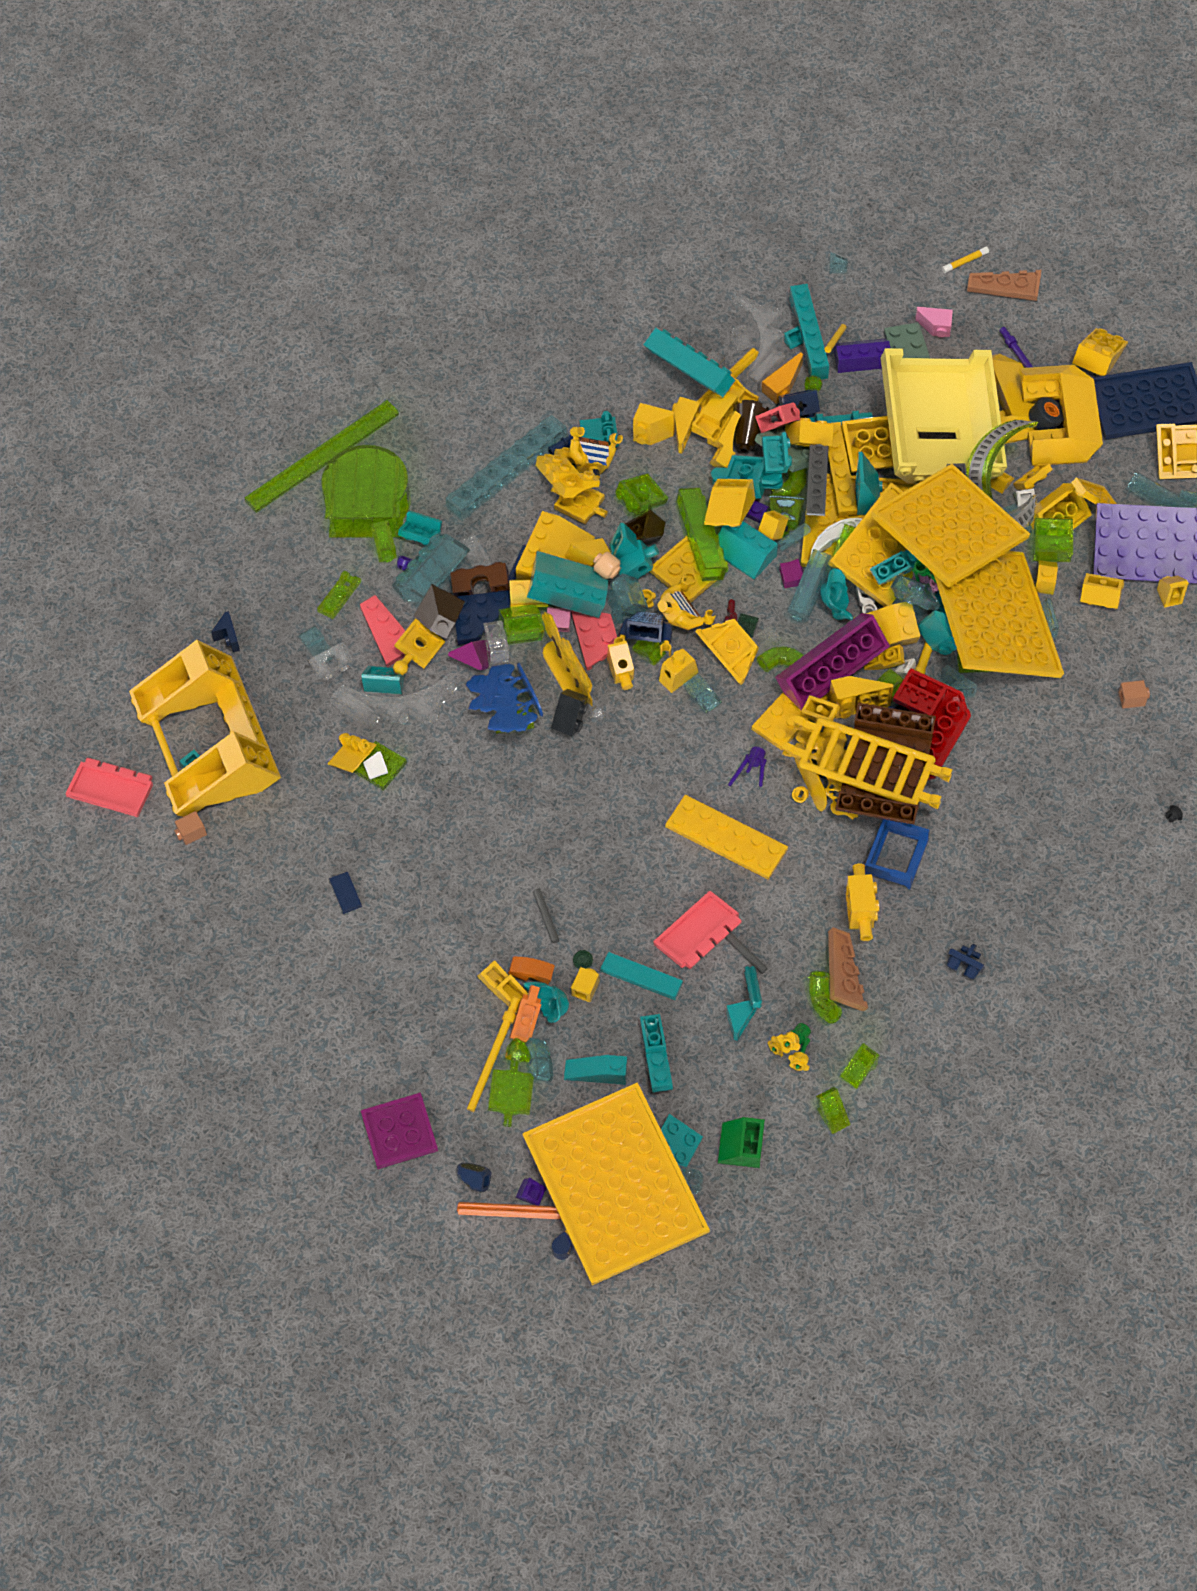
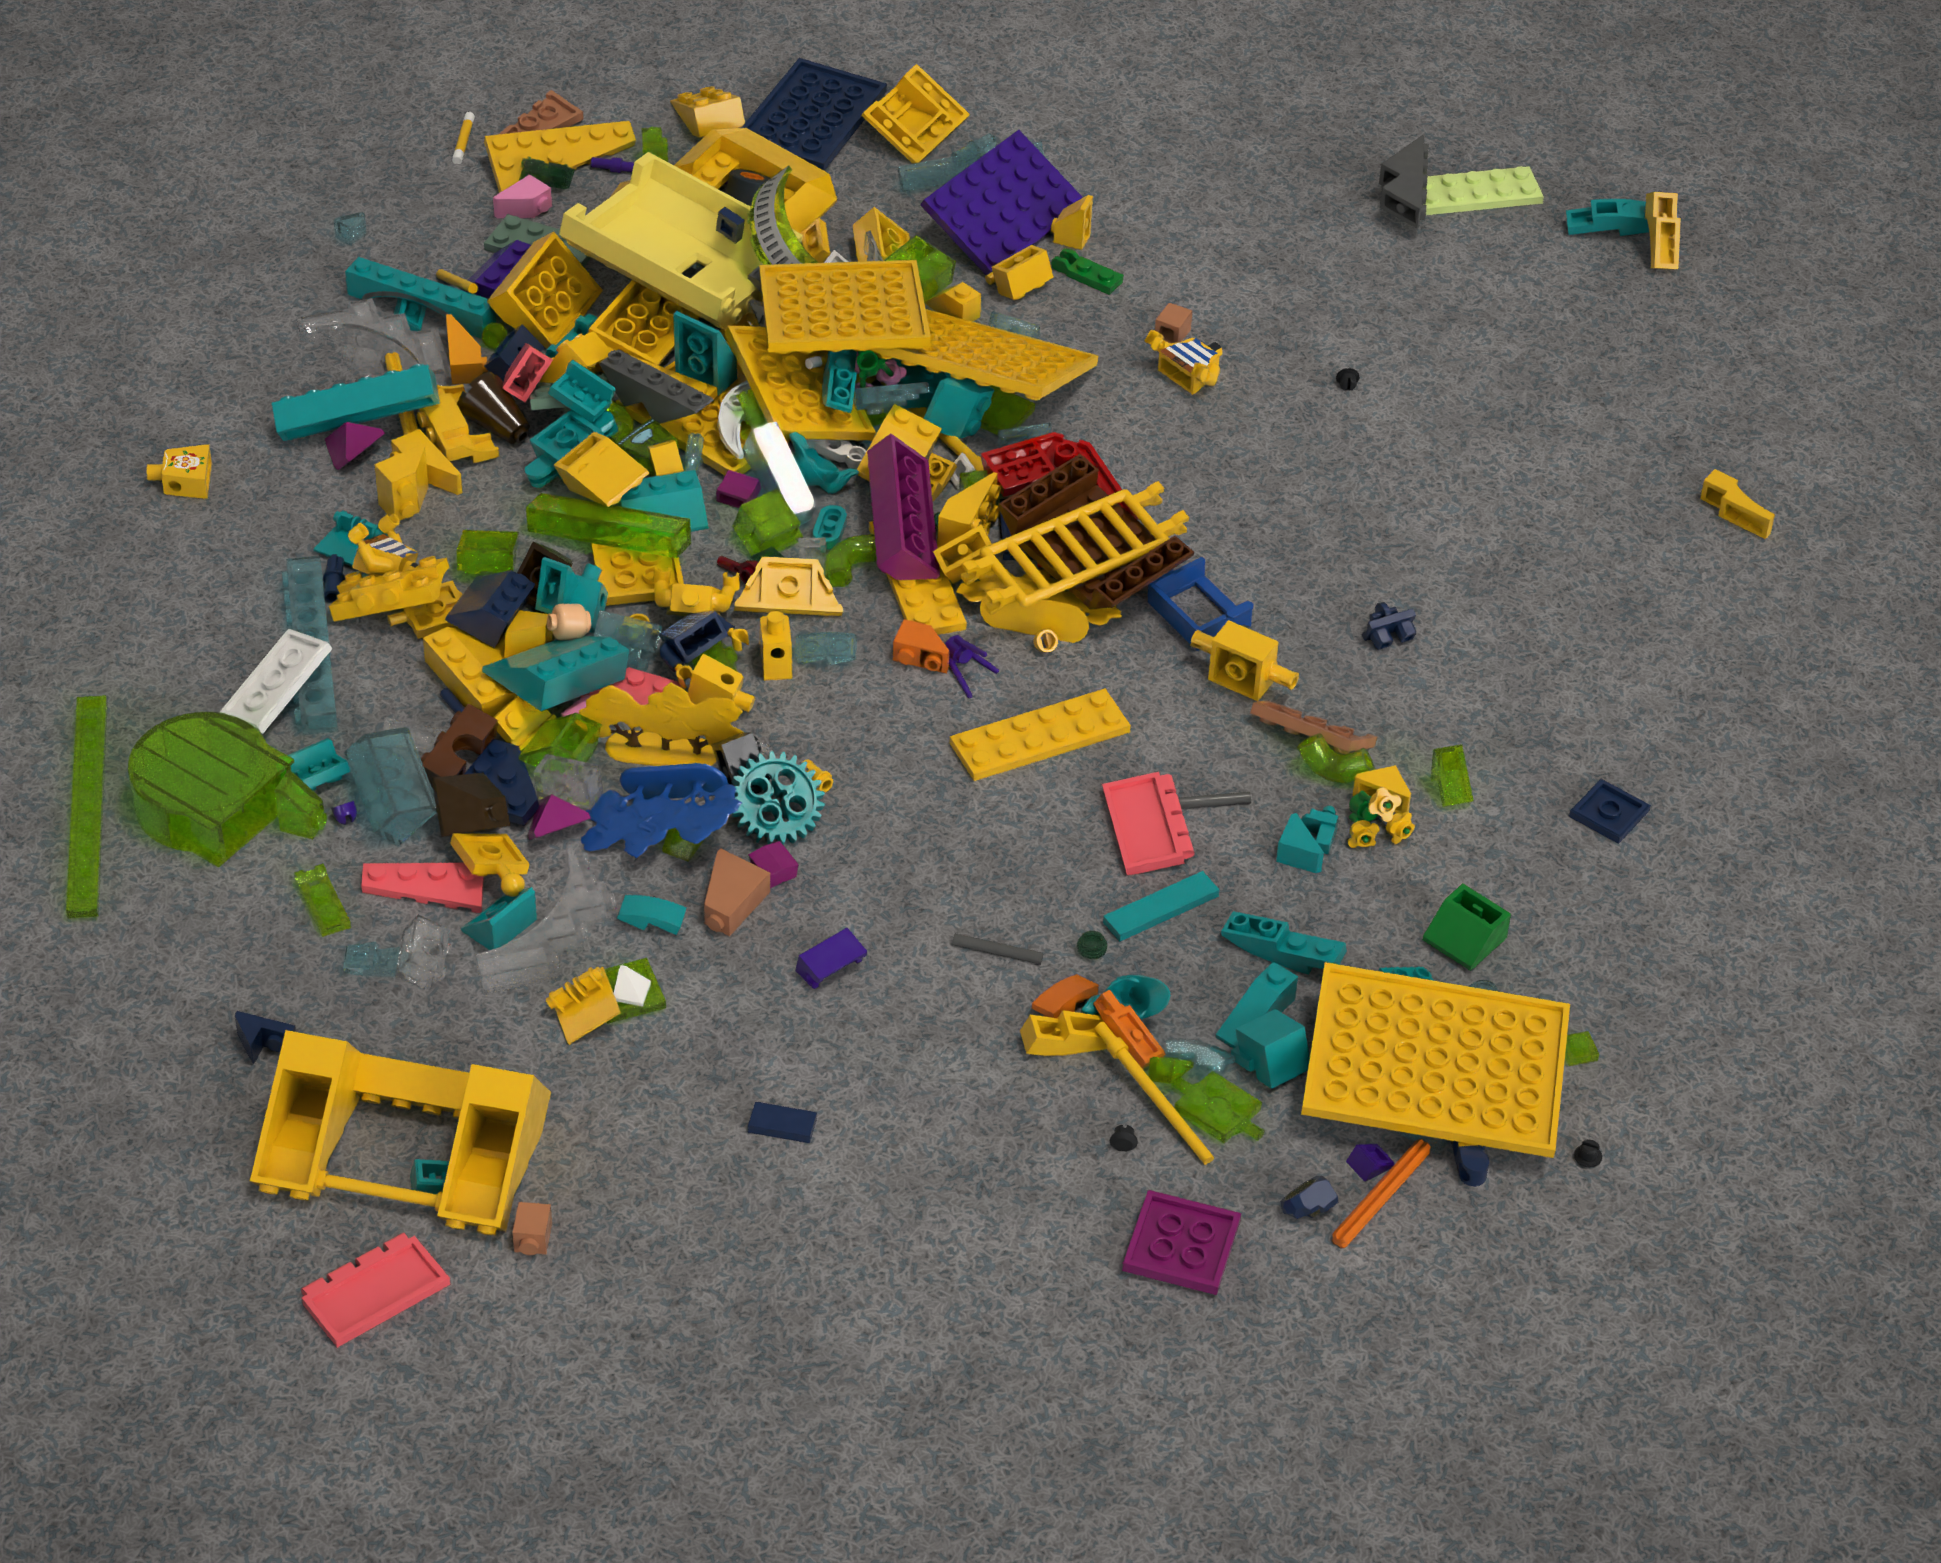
camera: 60 degrees left, 15 degrees down
(440, 741) = (641, 910): none -> teal slope
(453, 1059) = (1123, 1138): none -> black piece
(462, 471) = (277, 679): none -> white tile
(471, 841) = (829, 957): none -> dark purple hinge
(481, 767) = (733, 892): none -> nougat slope
(520, 772) = (775, 860): none -> magenta piece
(545, 736) = (800, 791): none -> teal gear
(568, 1092) = (1273, 1048): none -> teal plate
(584, 328) = (184, 471): none -> yellow torso
(585, 984) = (1132, 955): yellow brick -> none
(591, 522) = (491, 605): none -> dark blue slope
(600, 754) = (824, 776): none -> yellow pin
(620, 1304) = (1588, 1153): none -> black piece
(668, 381) = (350, 441): none -> magenta slope
(700, 1254) = (1580, 1049): none -> clear neon green plate
(724, 442) = (500, 437): yellow slope -> none
(741, 735) = (920, 646): none -> orange slope
(753, 987) = (1273, 808): teal axle -> none
(768, 1024) = (1324, 824): none -> teal piece
(770, 605) = (767, 523): none -> clear neon green plate
(800, 634) = (830, 524): none -> teal plate
(825, 1035) = (1384, 777): none -> yellow slope
(832, 1110) = (1486, 832): clear neon green slope -> none
(854, 384) = (545, 291): none -> yellow slope
(912, 1167) = (1609, 811): none -> dark blue tile
(969, 321) = (550, 174): none -> clear green hinge
(982, 426) = (730, 225): none -> plate
(985, 305) = (558, 145): none -> yellow wing
(1039, 348) = (654, 142): none -> clear neon green brick
(1092, 492) = (896, 206): yellow wing -> none
(1105, 721) = (1187, 362): none -> yellow torso
(1144, 624) = (1087, 271): none -> green hinge

